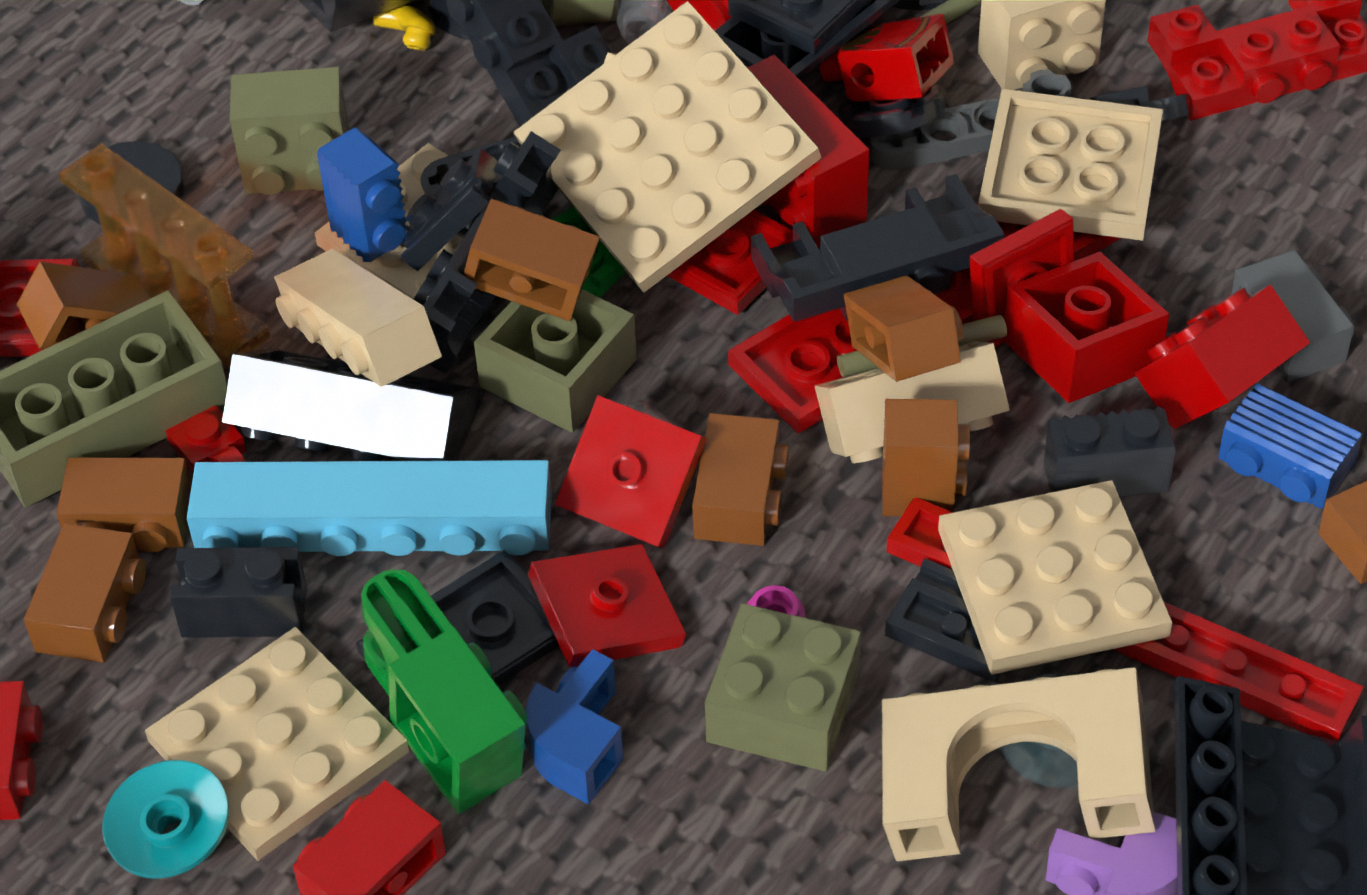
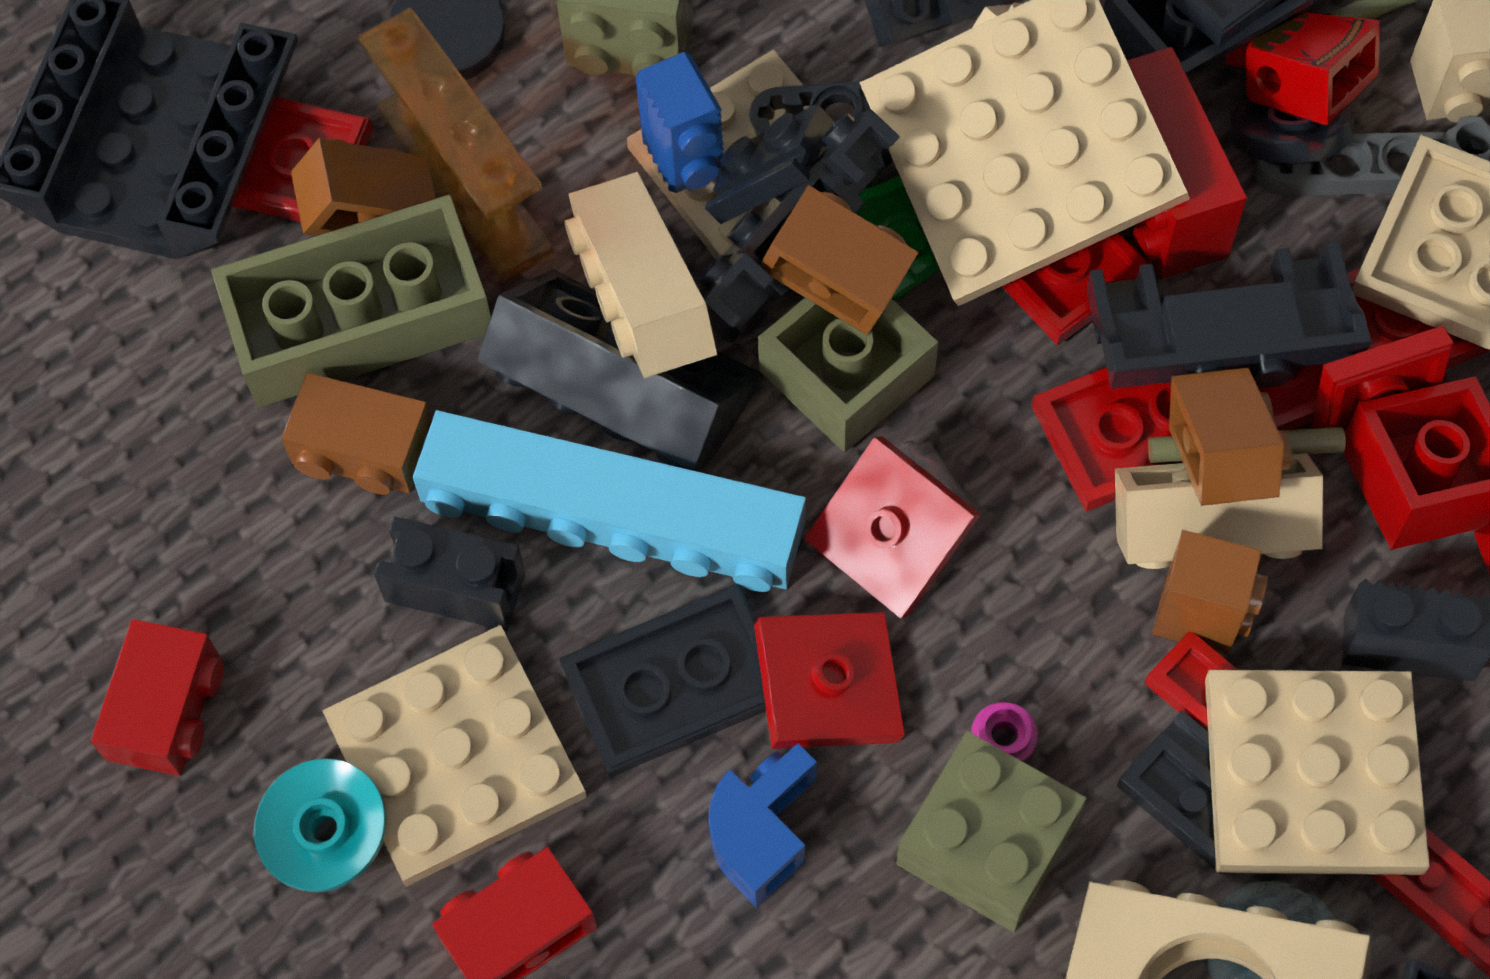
camera: 15 degrees right, 15 degrees up
(84, 593) = (294, 533): dark orange brick -> none
(206, 439) = (459, 377): red plate -> none
(441, 692) = (626, 760): green brick -> none
(737, 480) = (1005, 559): dark orange brick -> none

